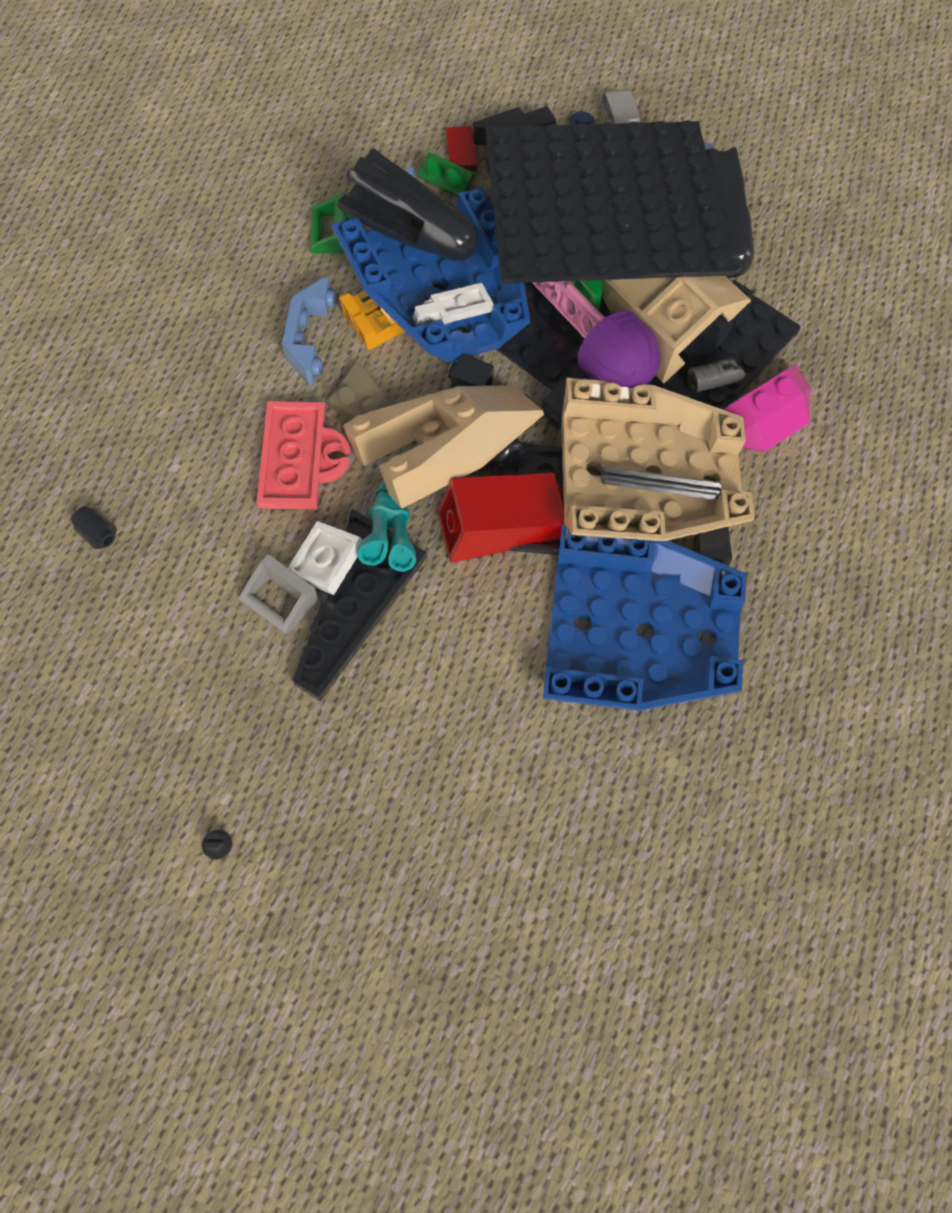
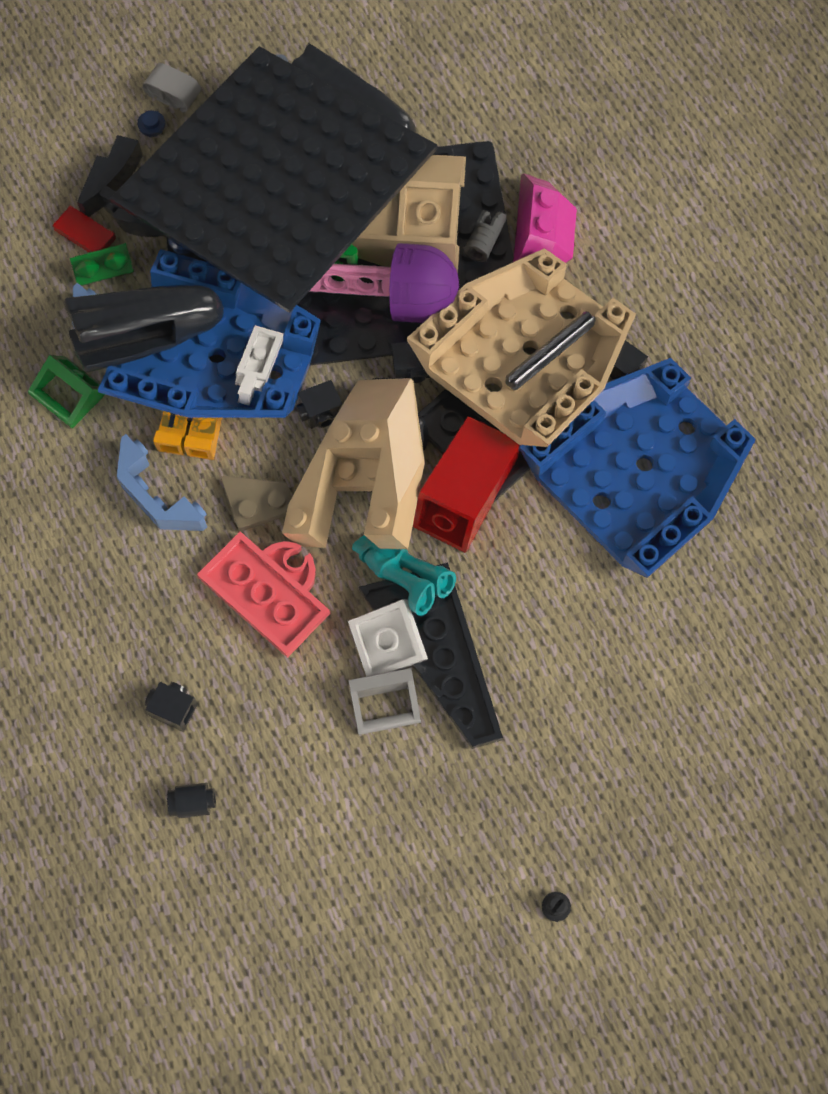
camera: 50 degrees left, 5 degrees up
(155, 461) = (171, 705): none -> black brick

